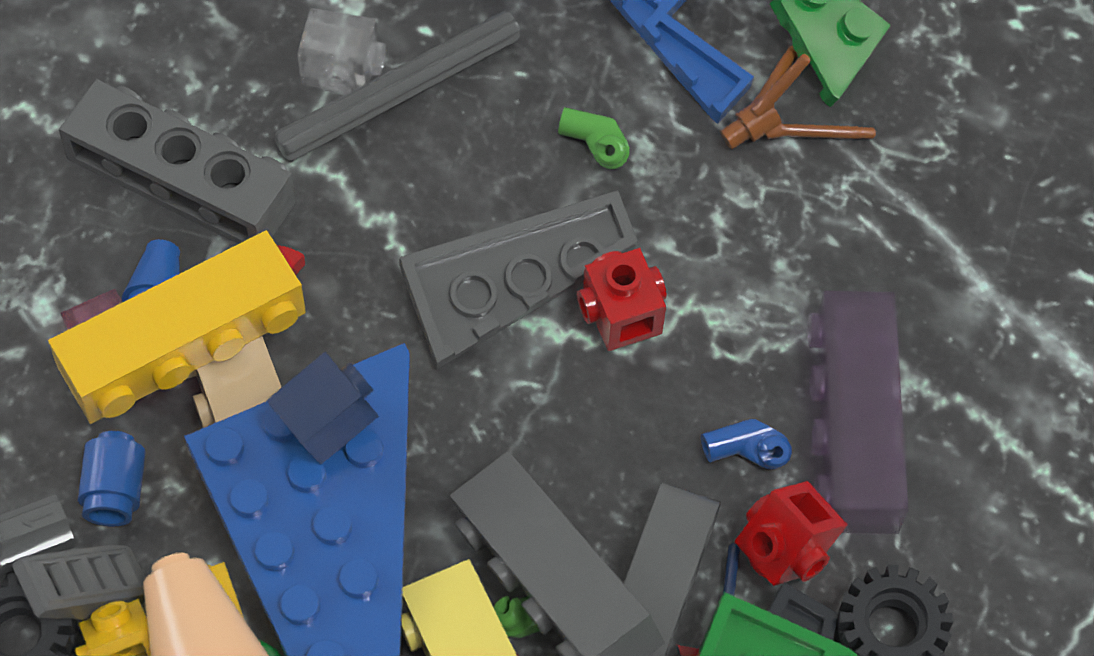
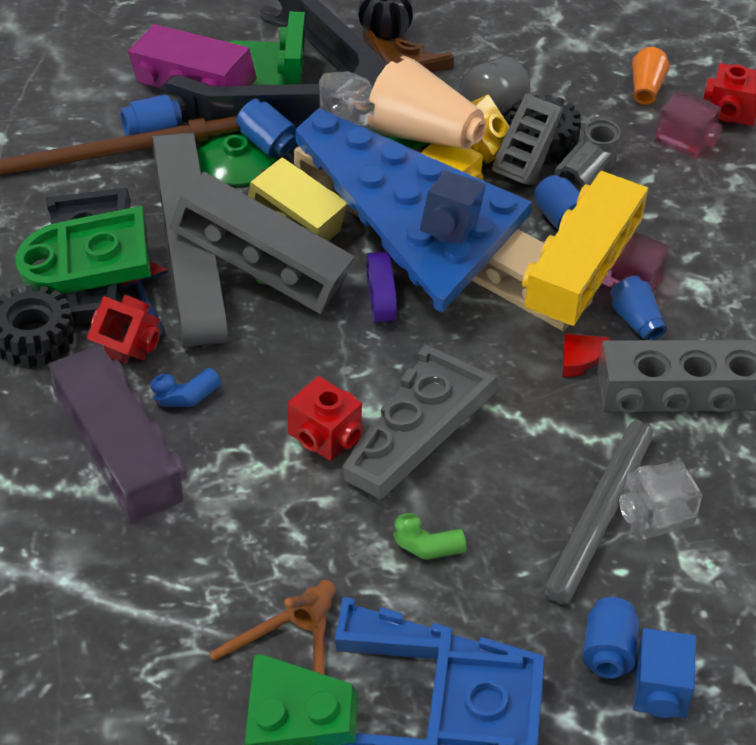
camera: 150 degrees right, 15 degrees down
(434, 465) = (381, 287): none -> dark purple beam

